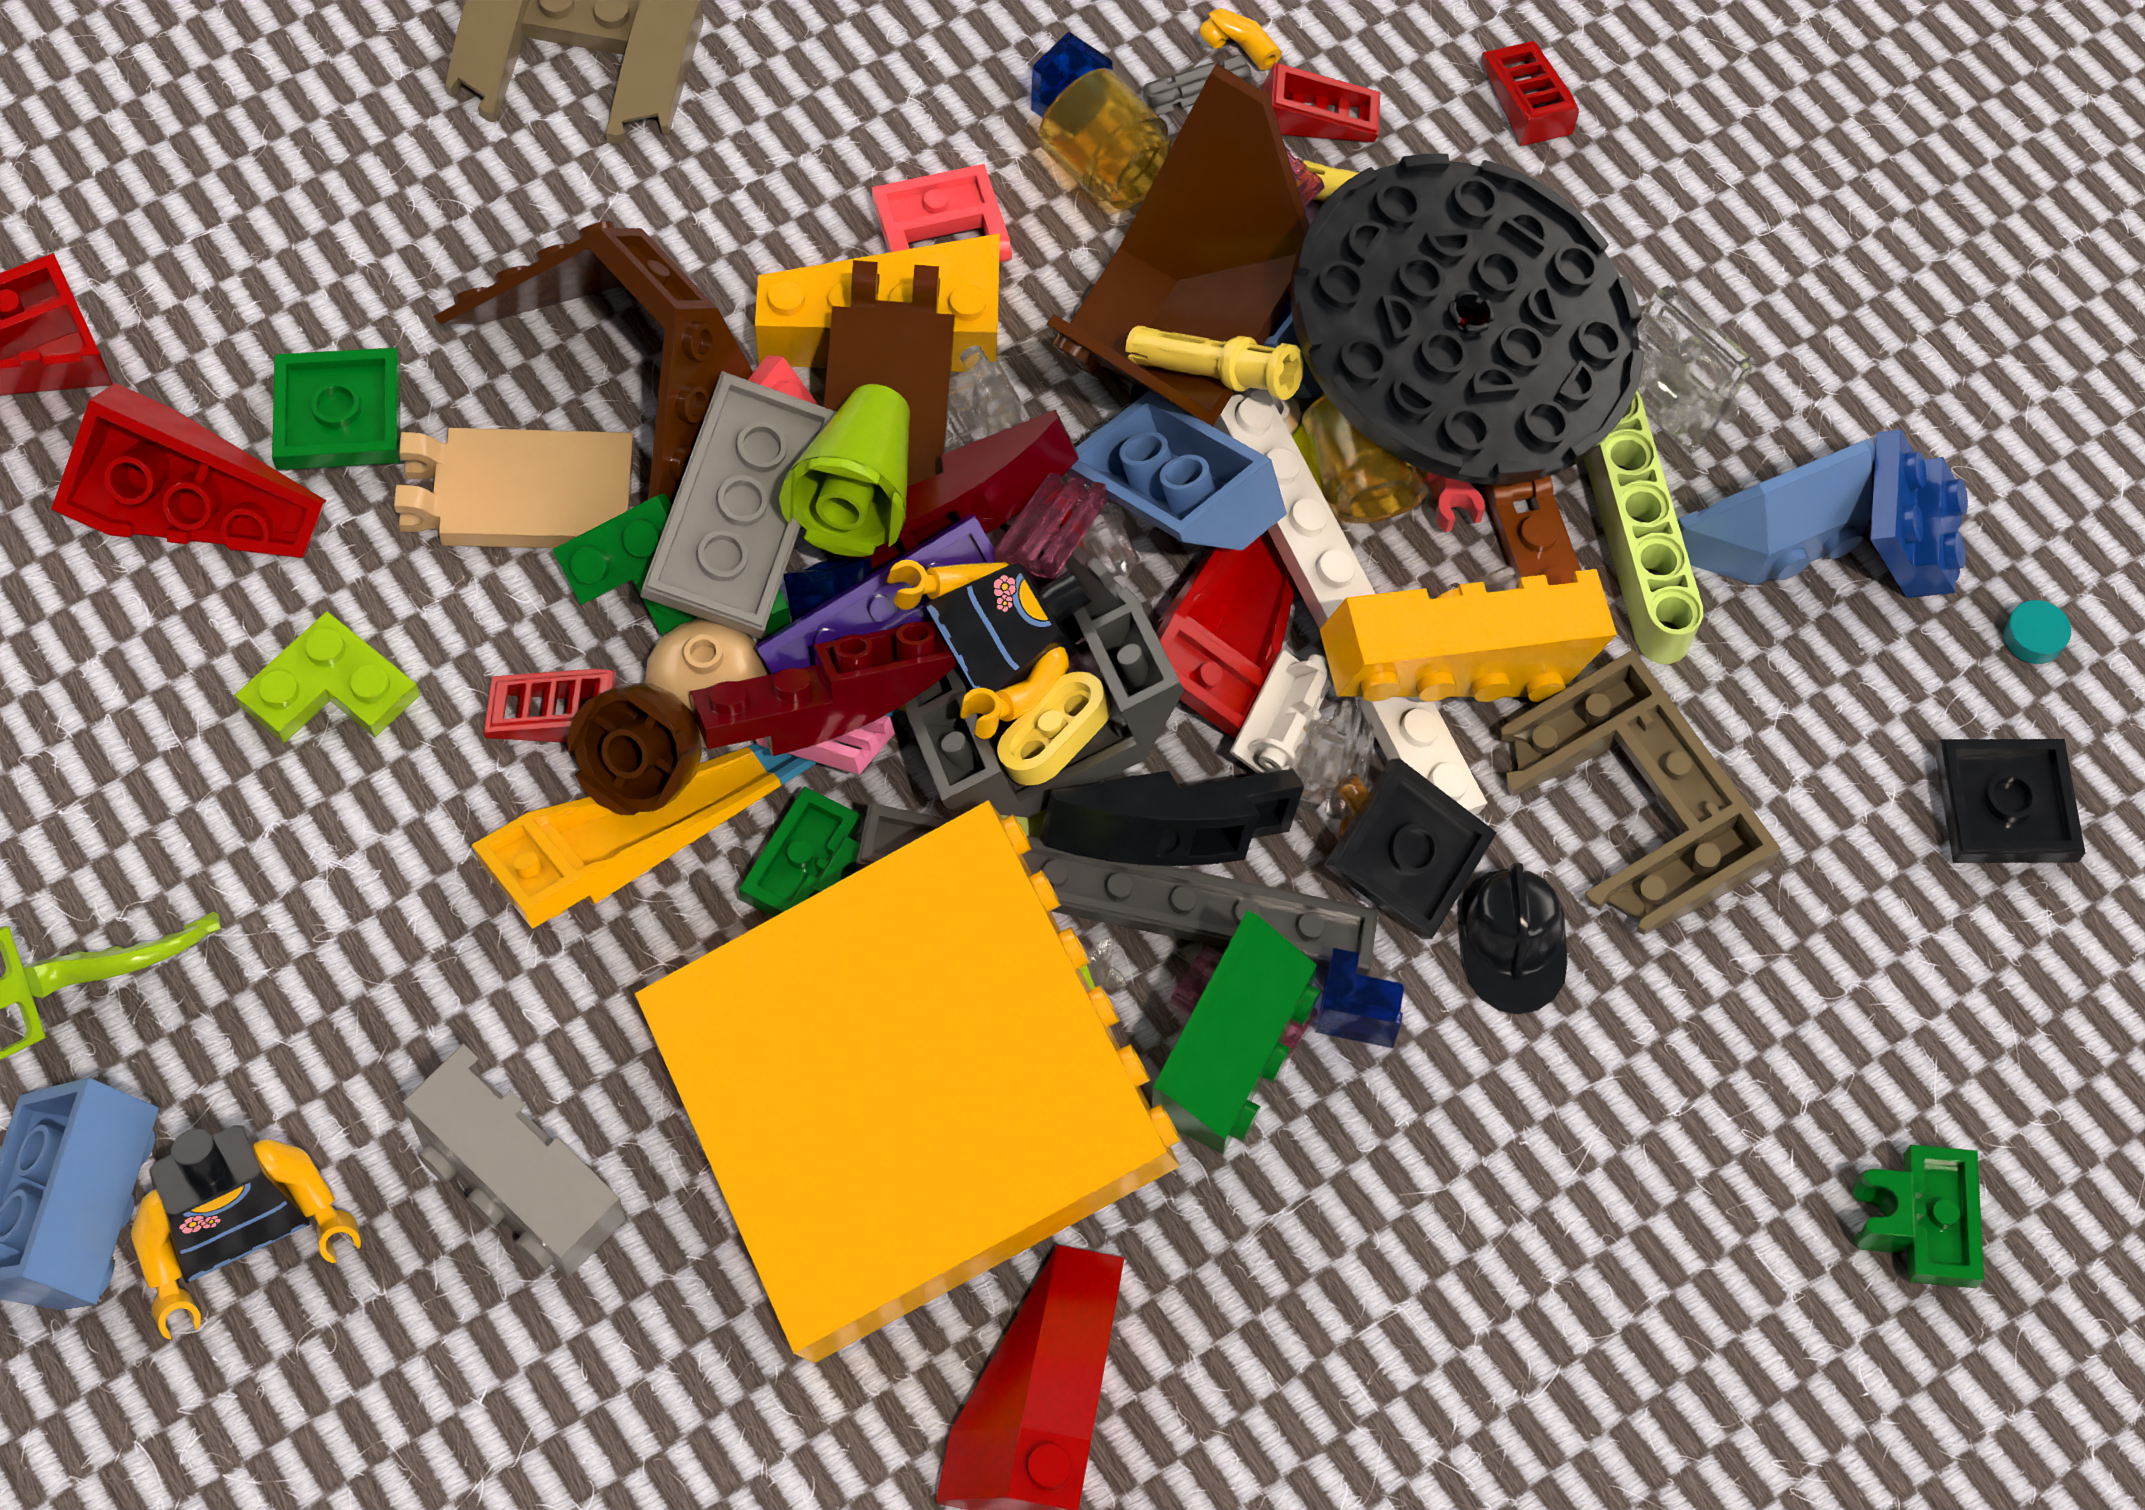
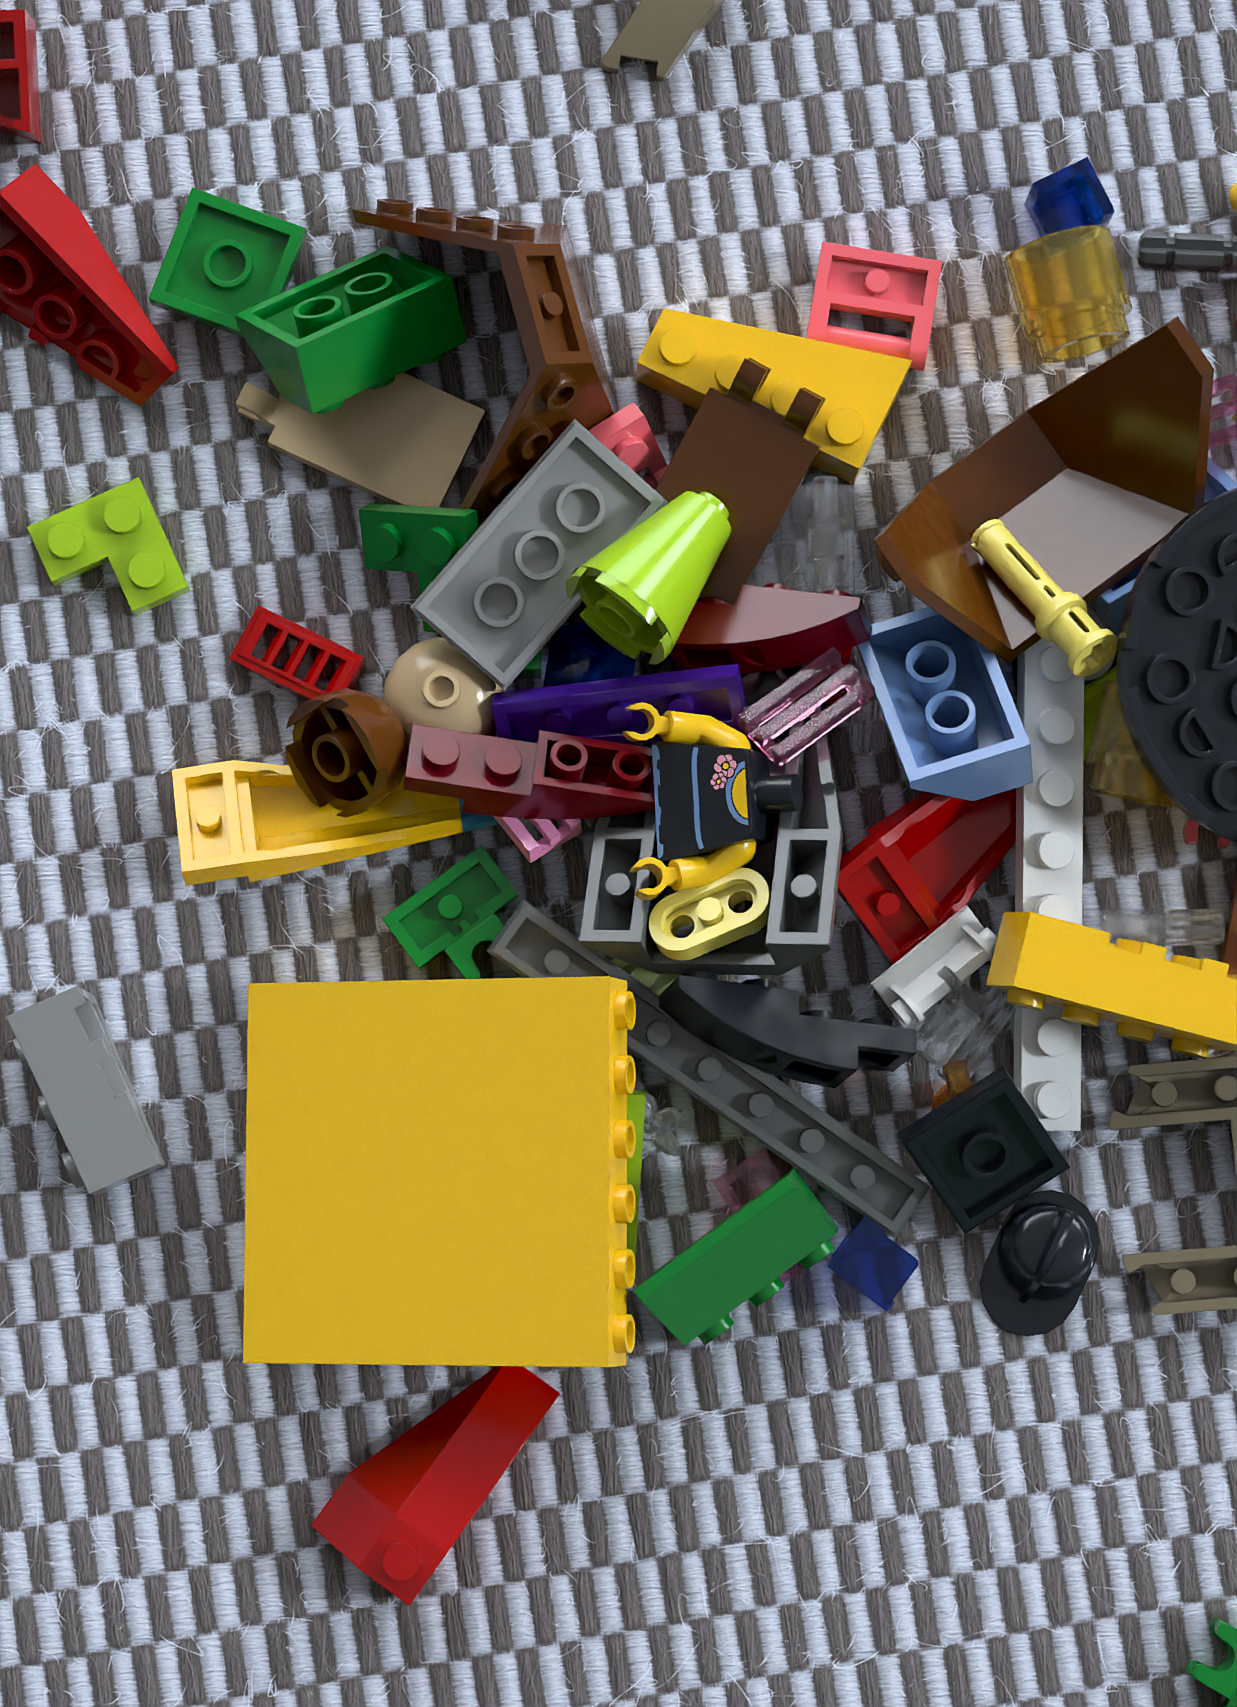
camera: 25 degrees right, 20 degrees up
(482, 401) = (354, 328): none -> green slope

